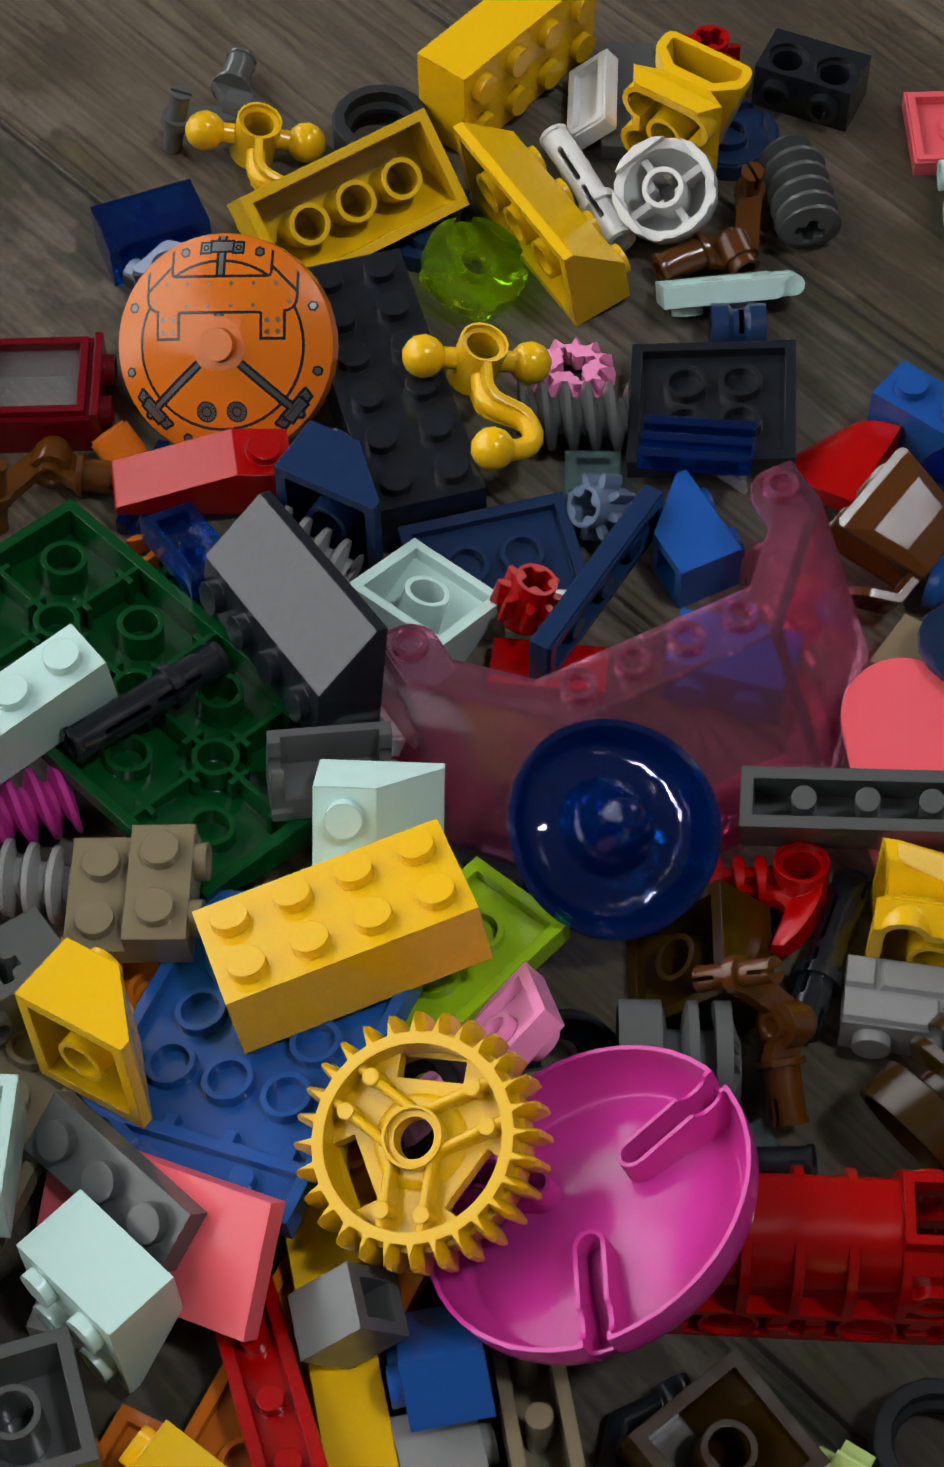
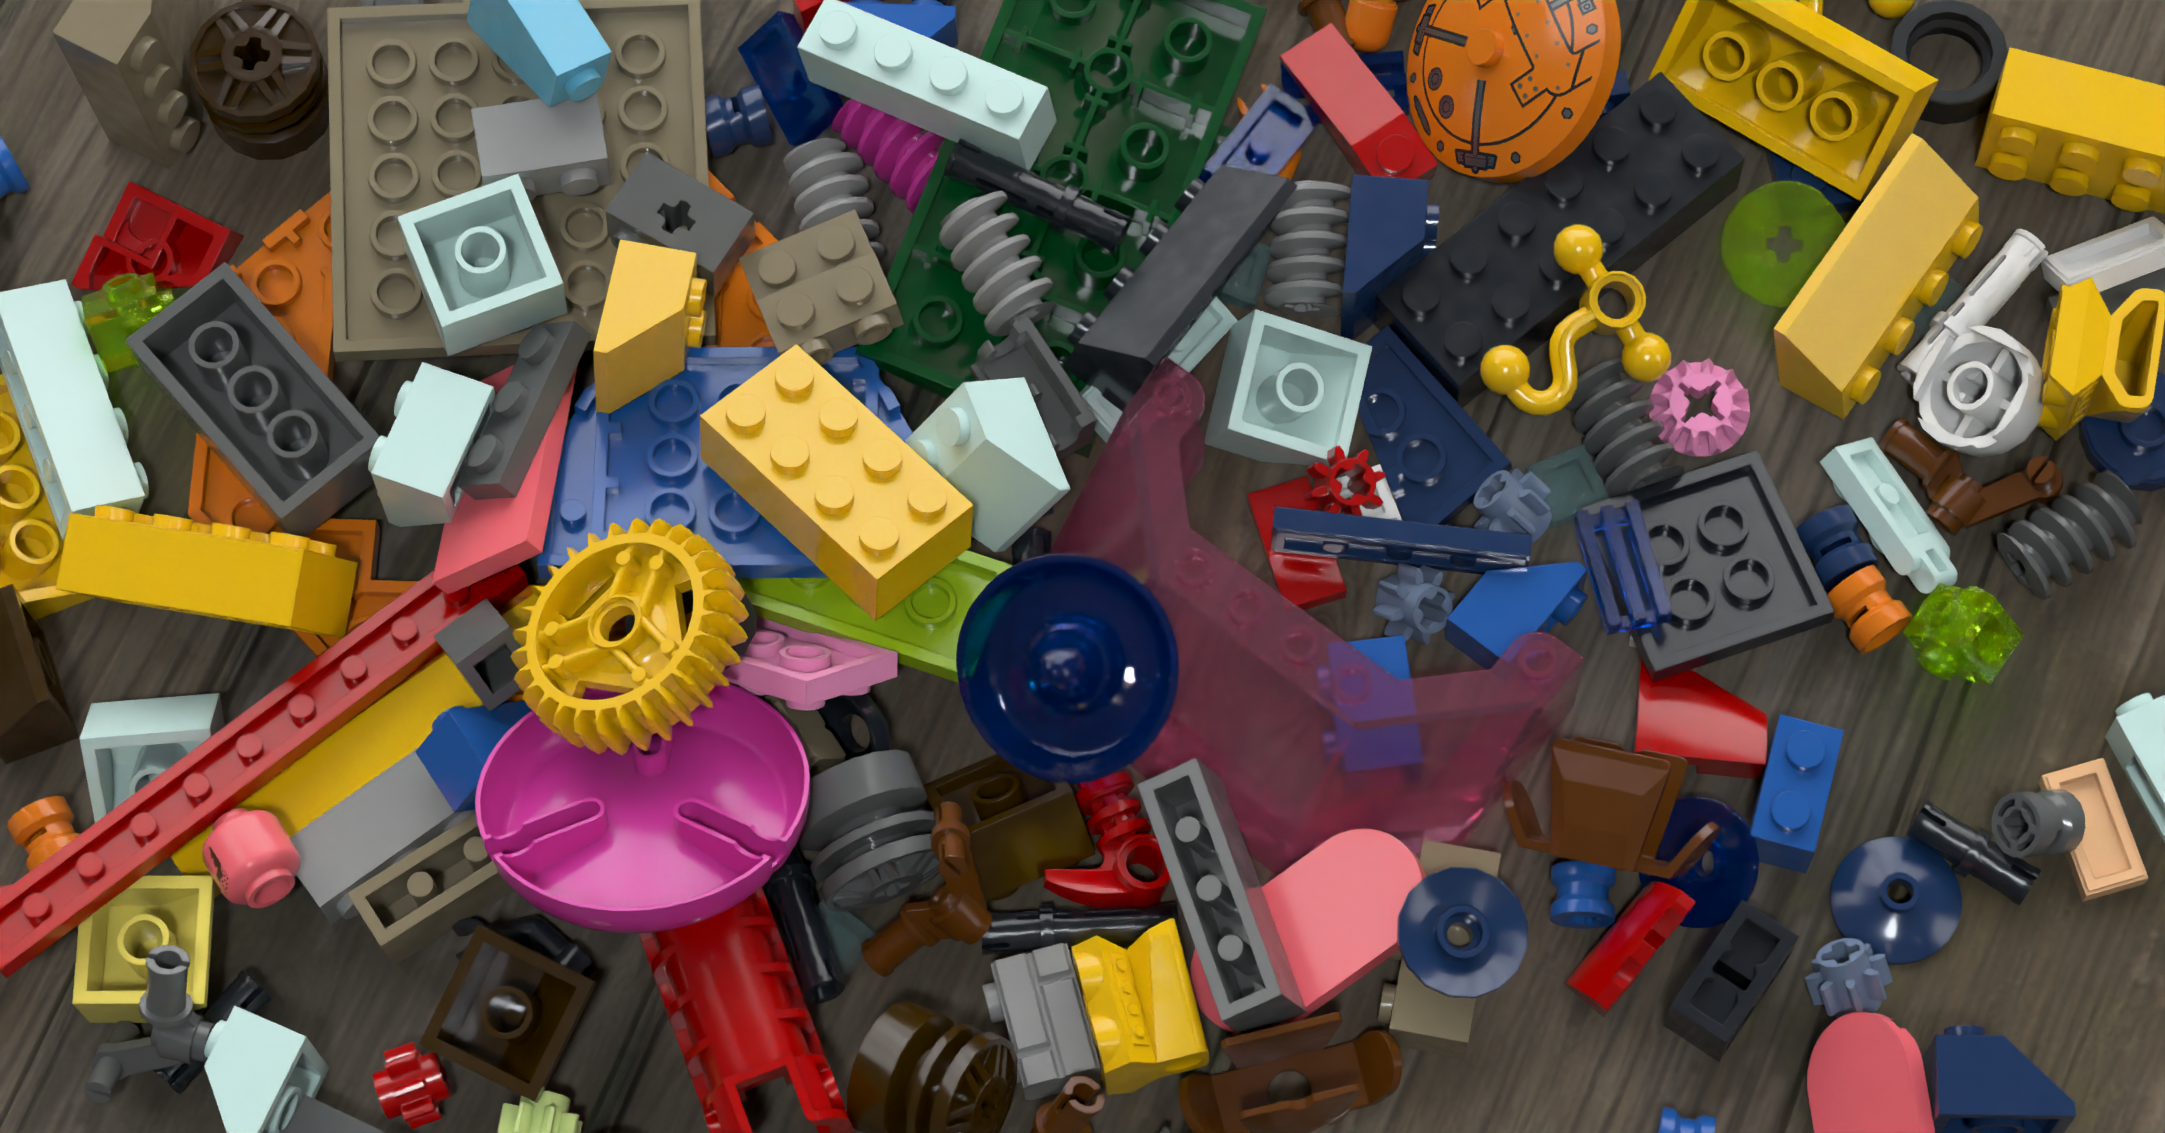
camera: 70 degrees right, 15 degrees up
(193, 746) = (993, 263): none -> light grey piece
(648, 599) = (1414, 602): none -> sand blue gear
(805, 324) = (1868, 609): none -> orange wheel
(848, 277) = (1963, 634): none -> clear neon green brick

